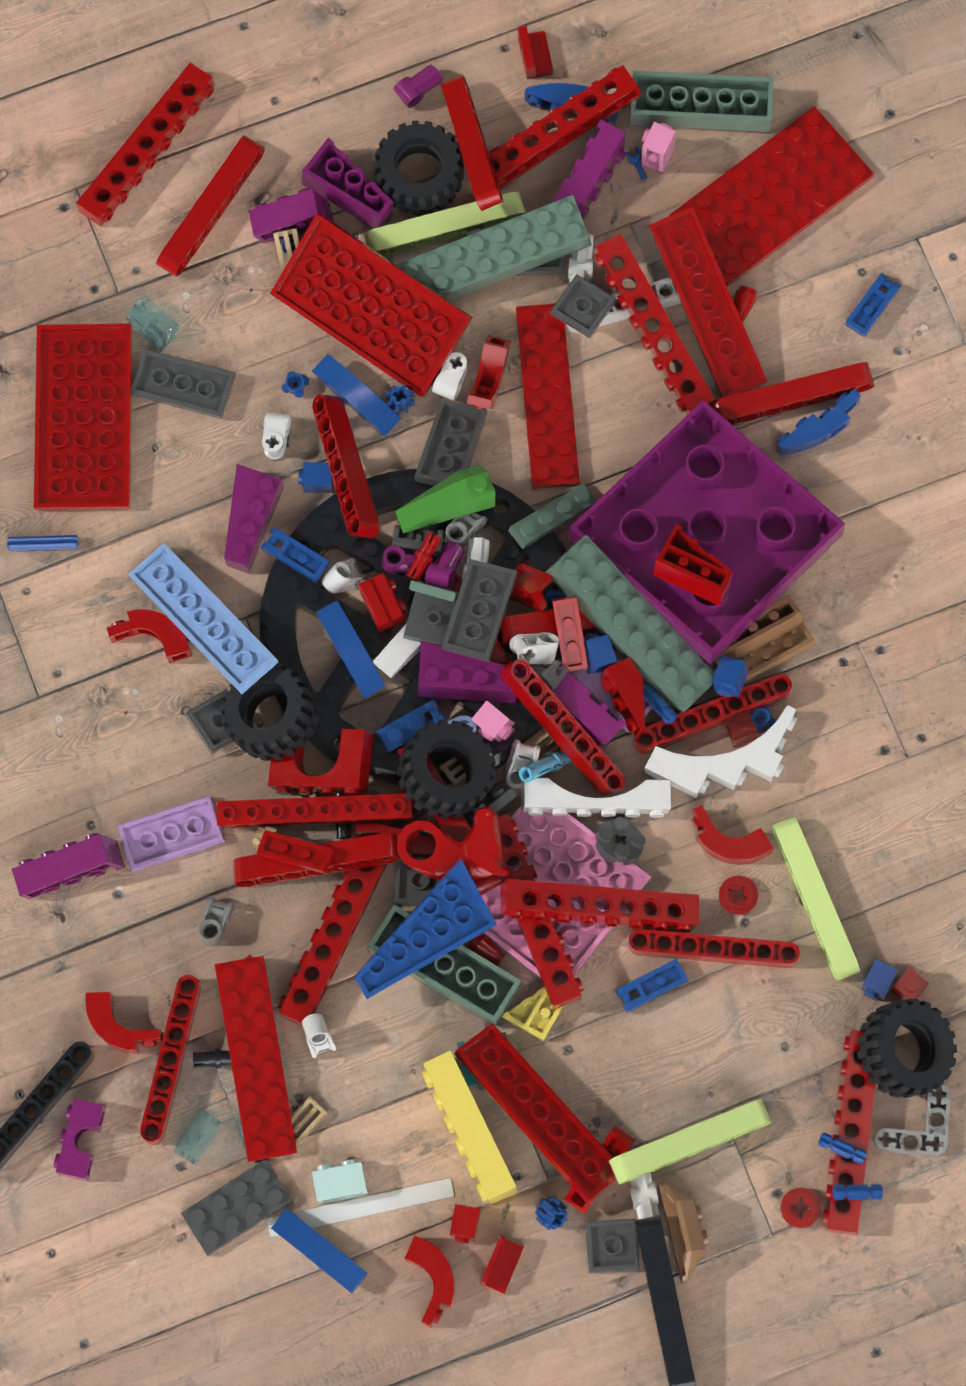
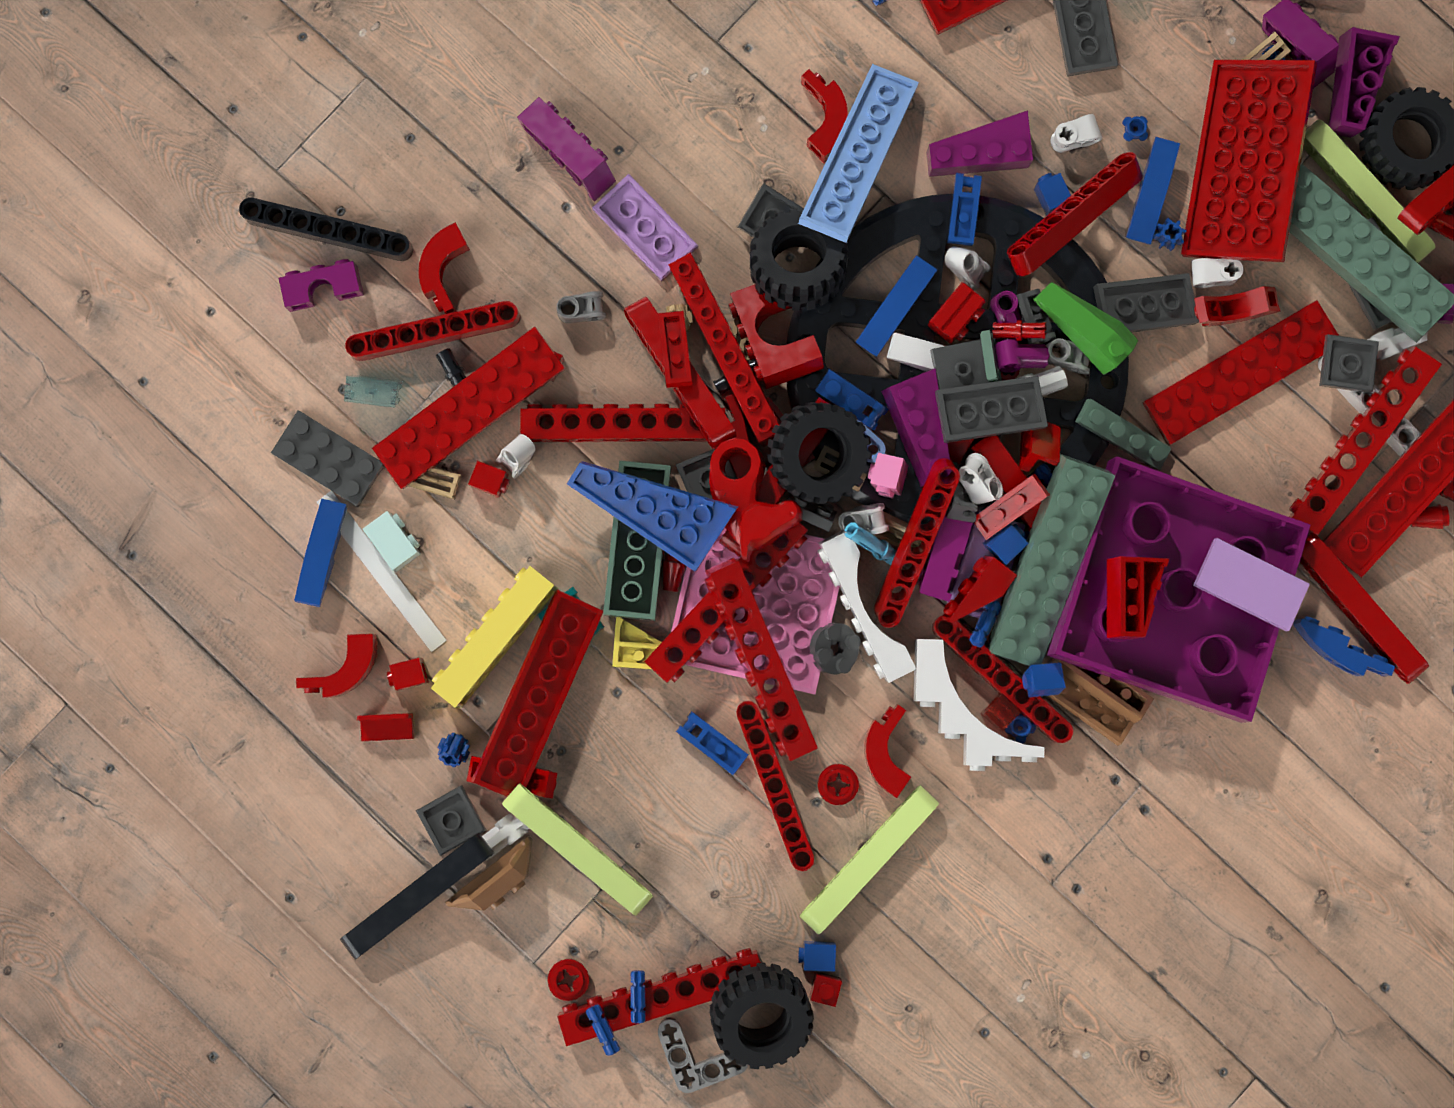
camera: 60 degrees right, 10 degrees up
(327, 1071) = (489, 479): none -> red brick
(730, 469) = (1251, 584): none -> lavender tile

